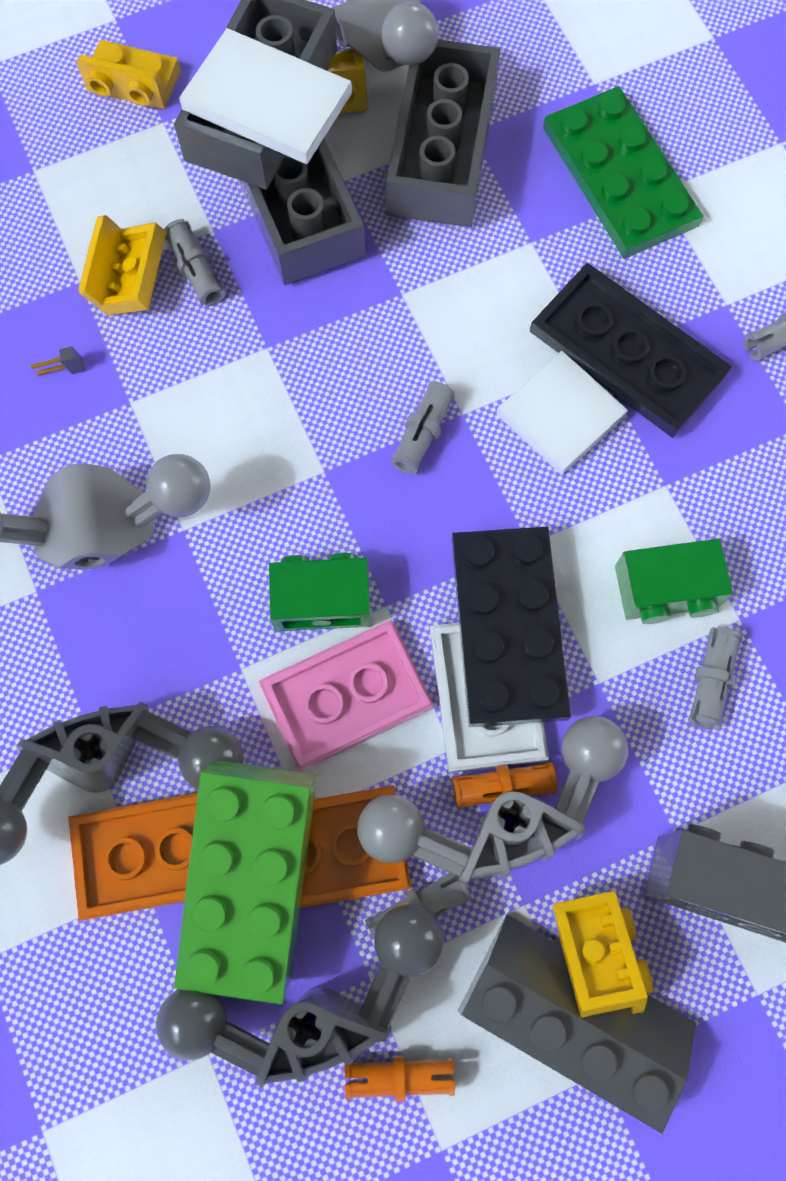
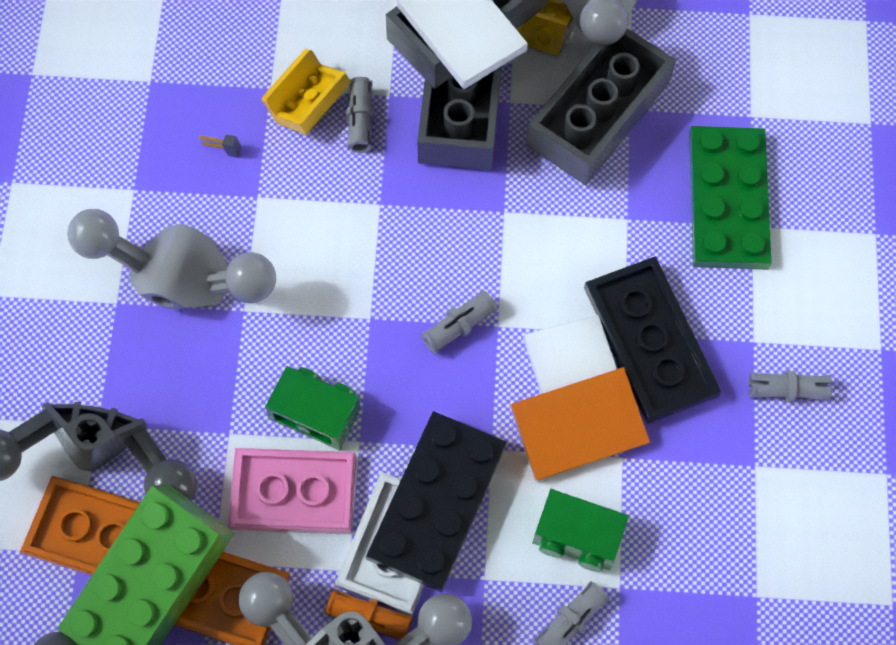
camera: 25 degrees right, 5 degrees down
(608, 471) = (579, 423): none -> orange tile

